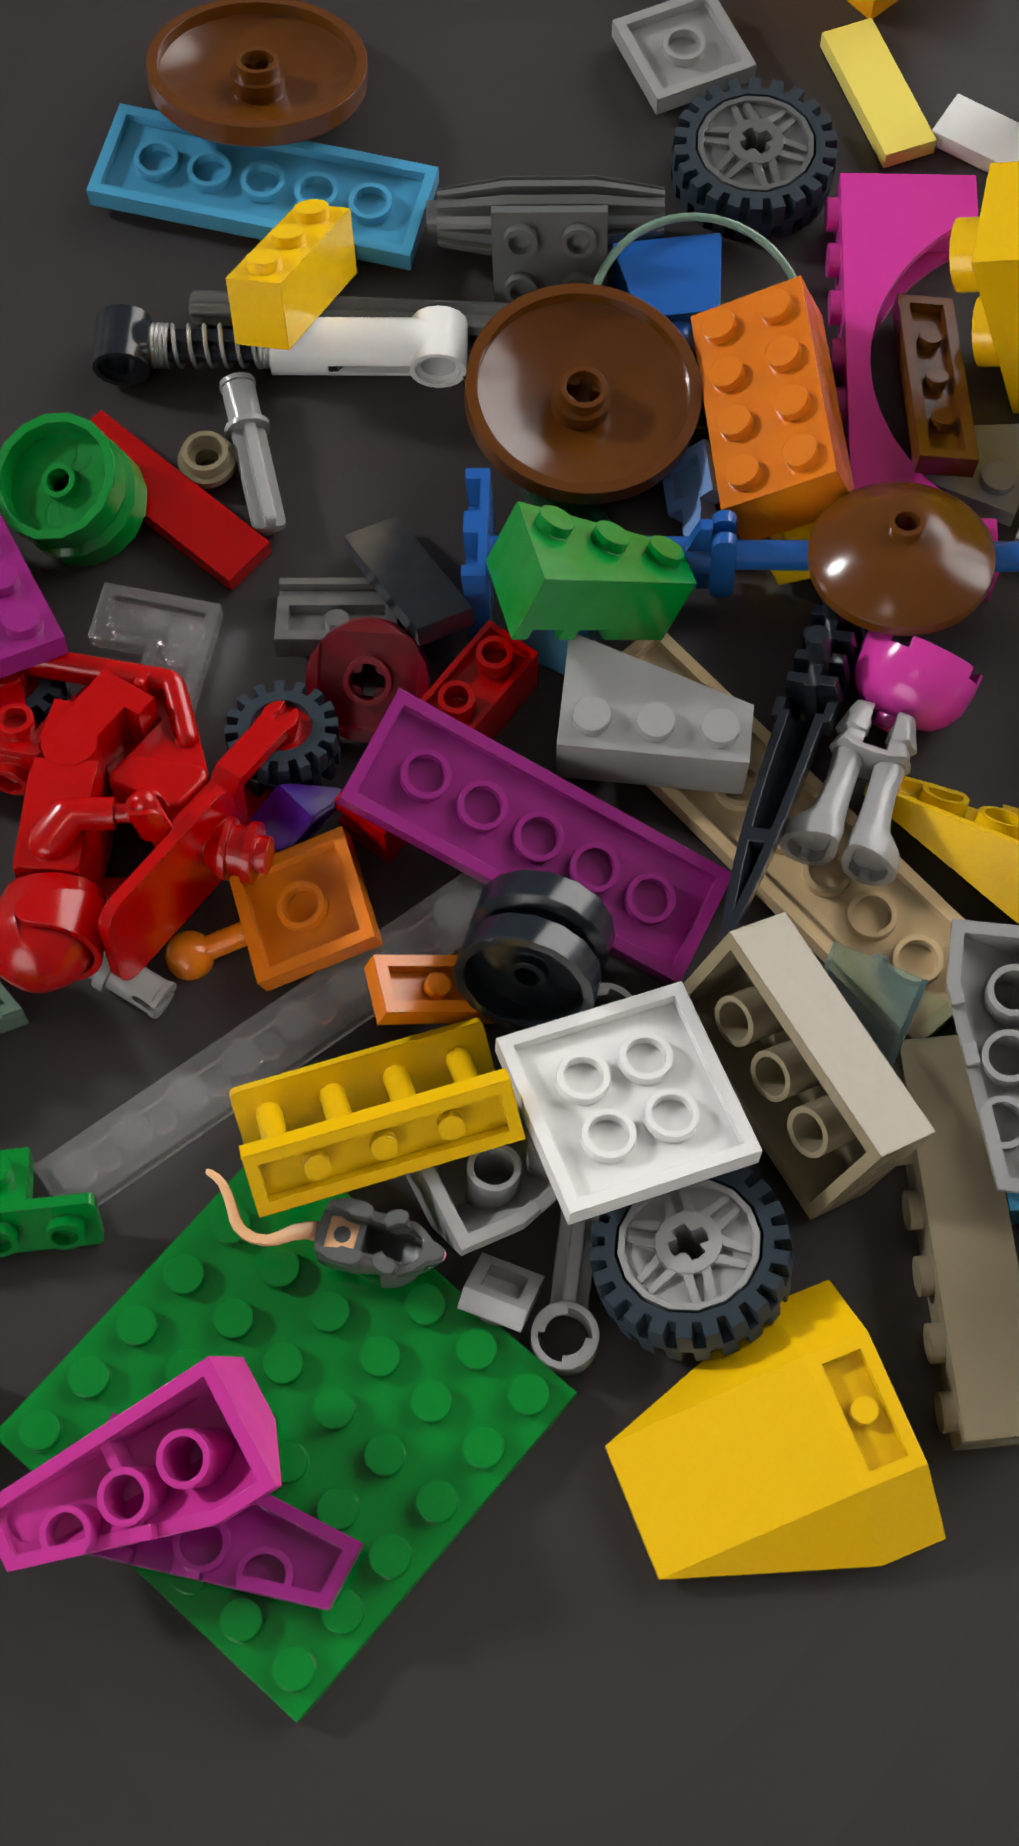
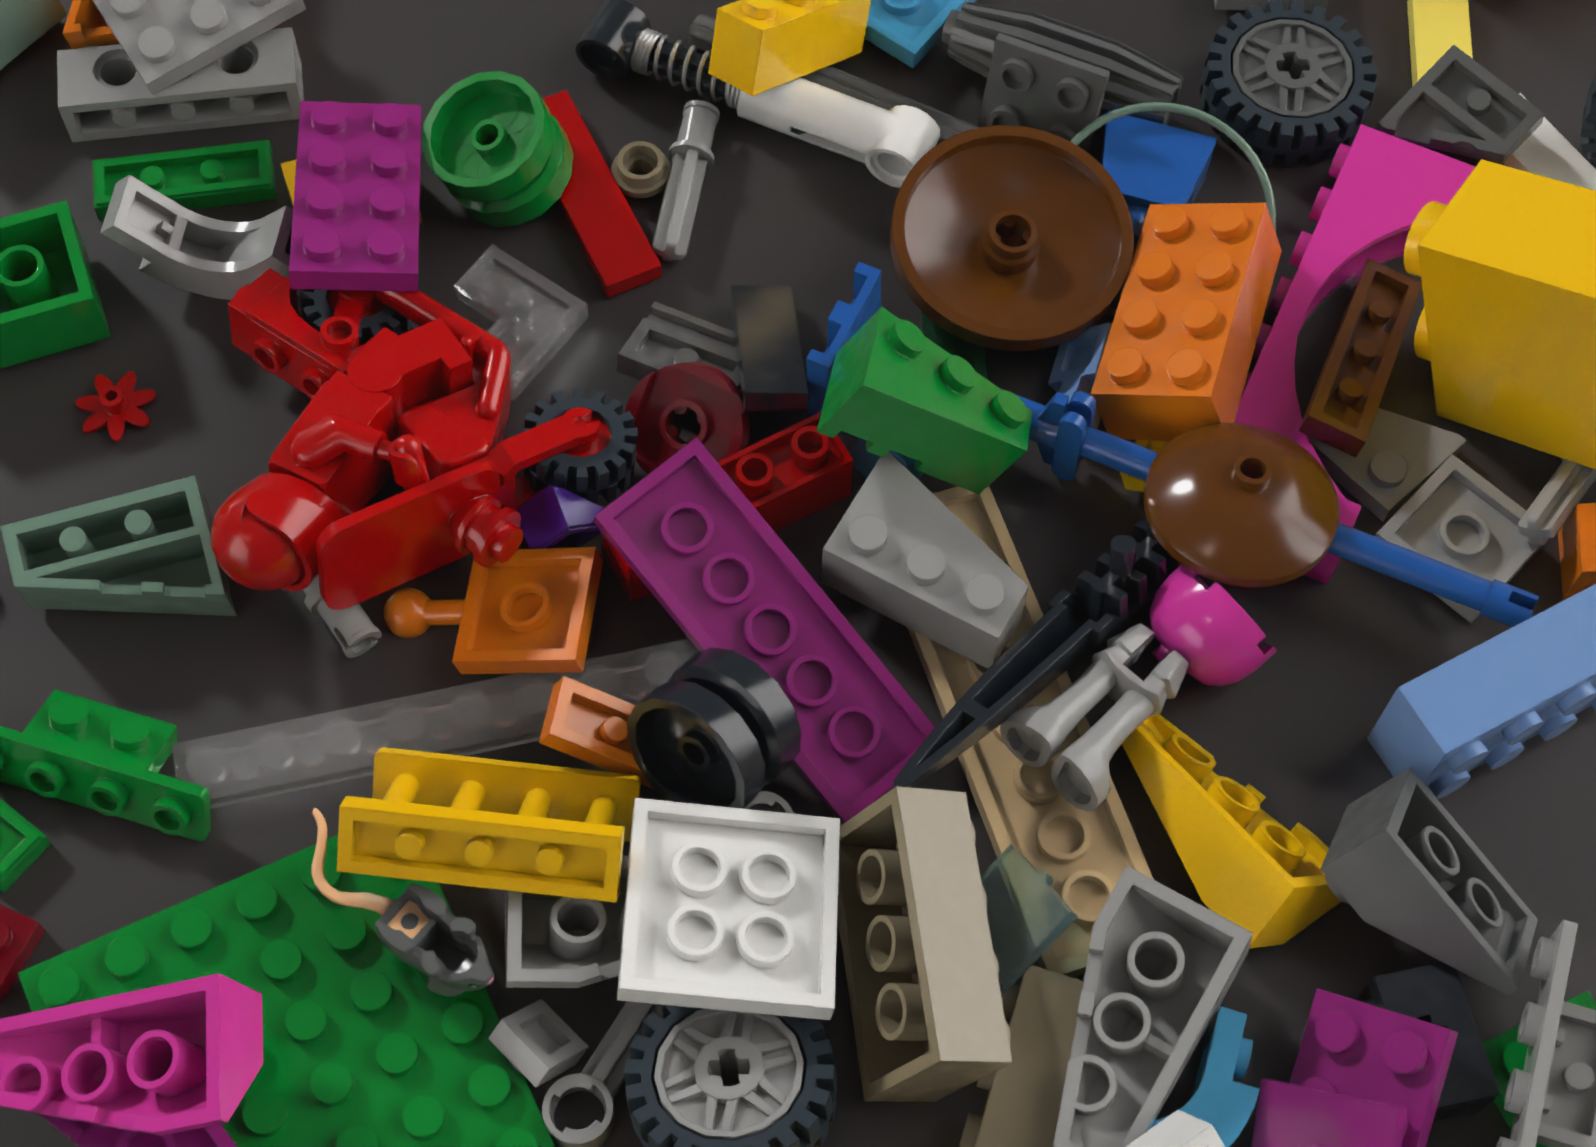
camera: 20 degrees right, 5 degrees down
(921, 128) = (1463, 111): none -> dark grey wing

